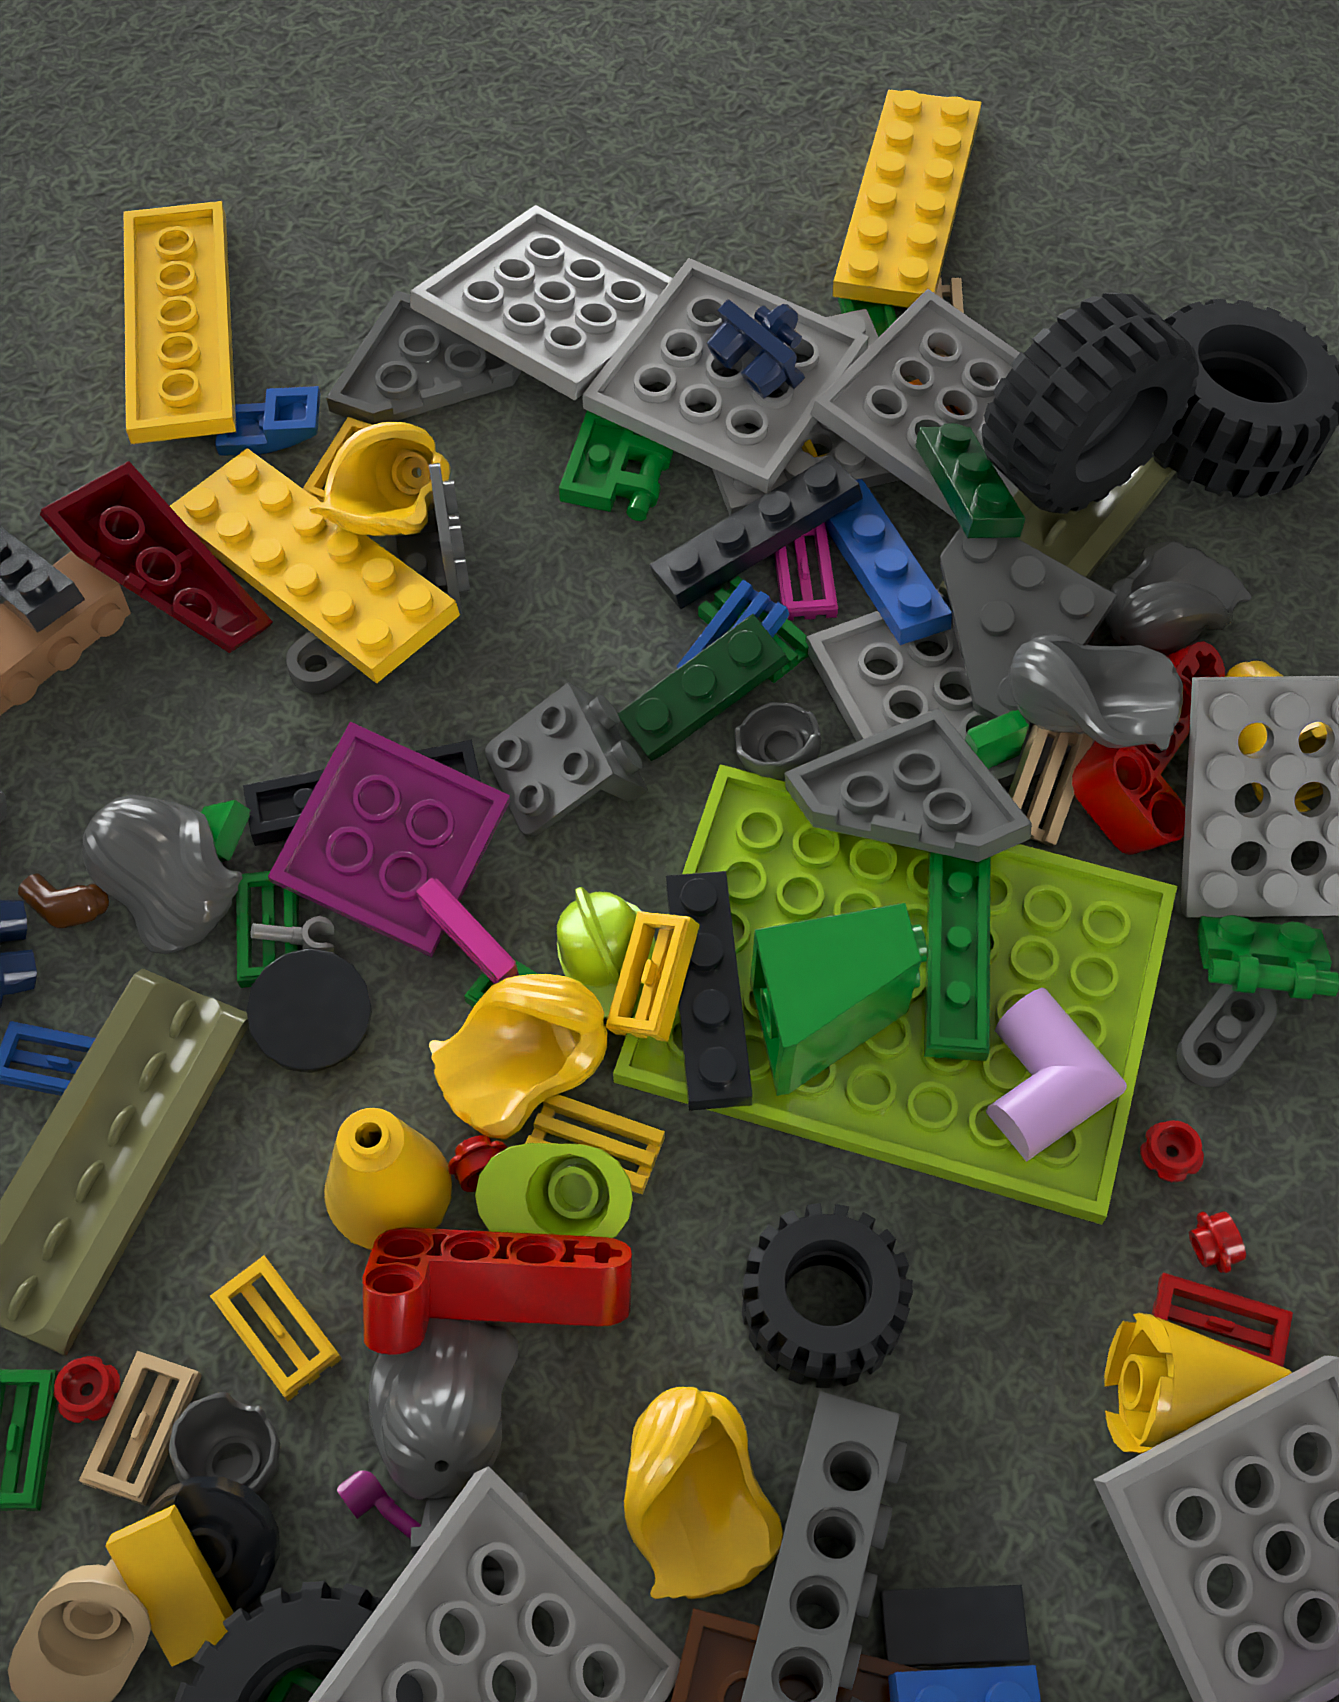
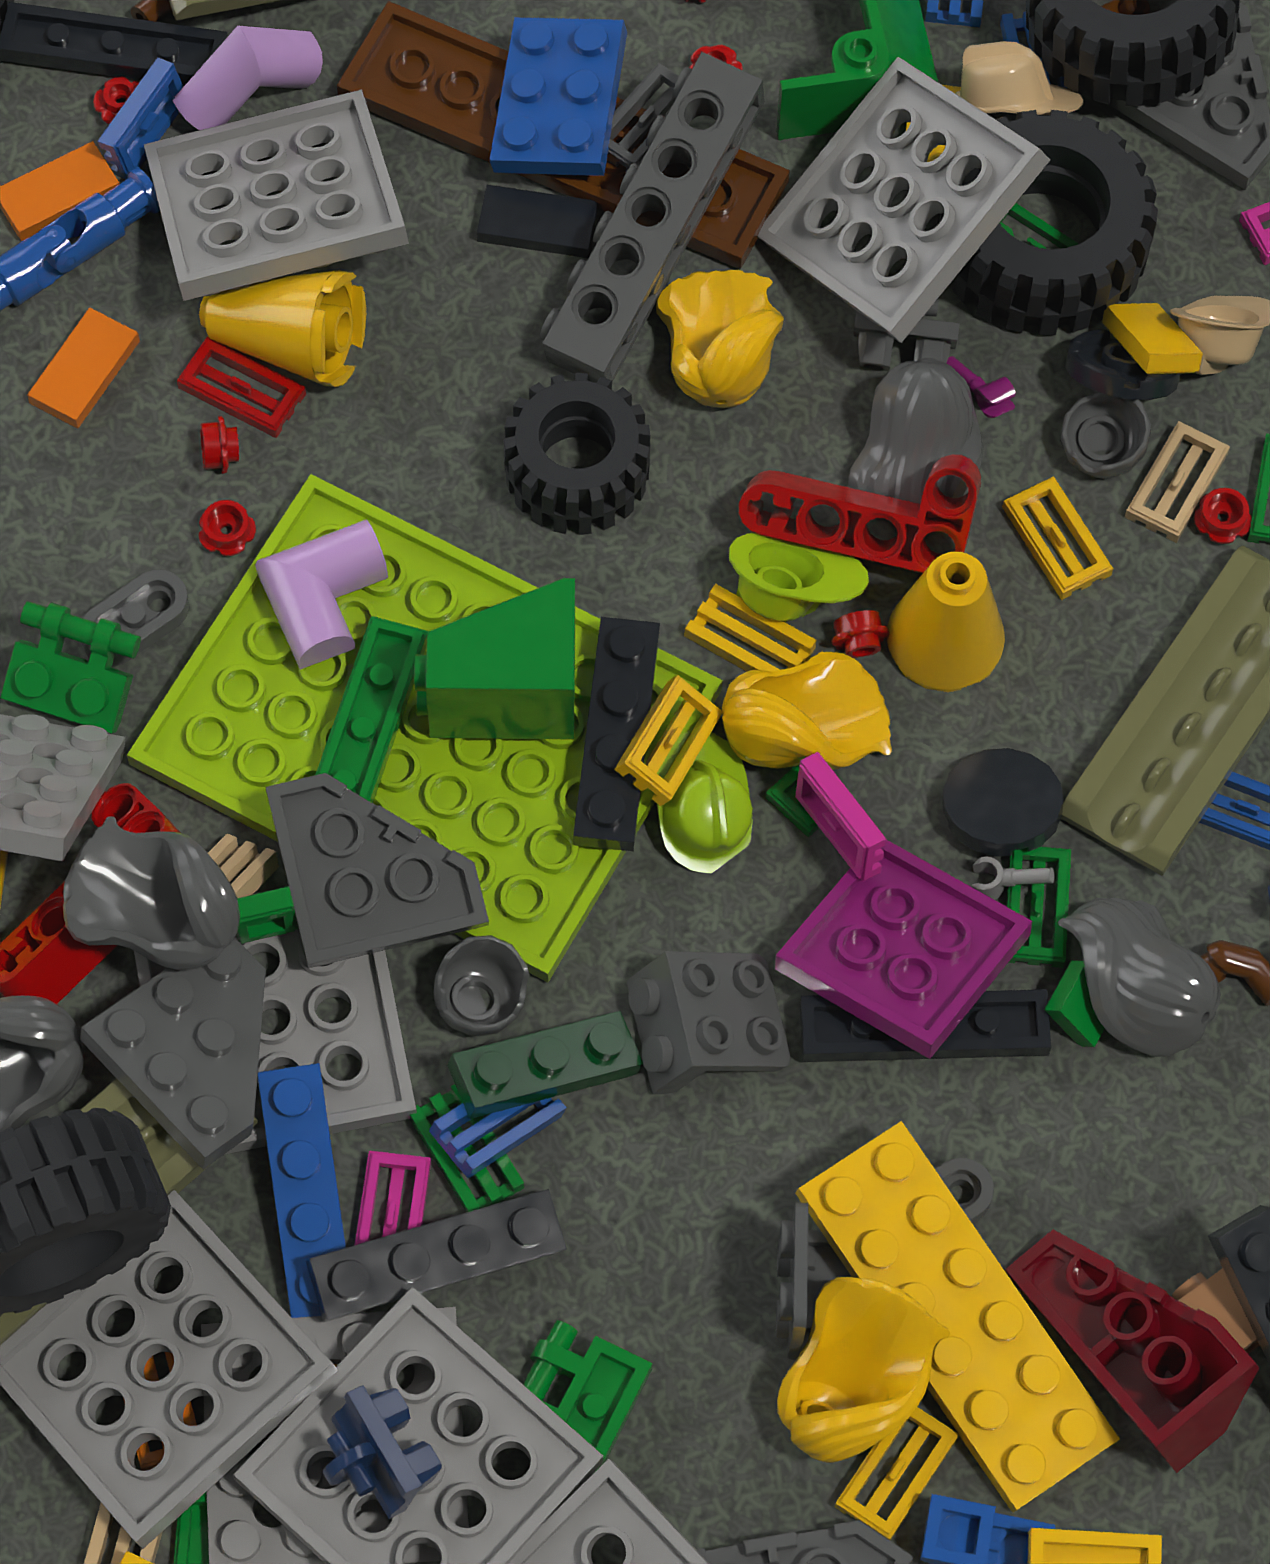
camera: 170 degrees left, 5 degrees up
(969, 482) = (195, 1180): dark green plate -> none

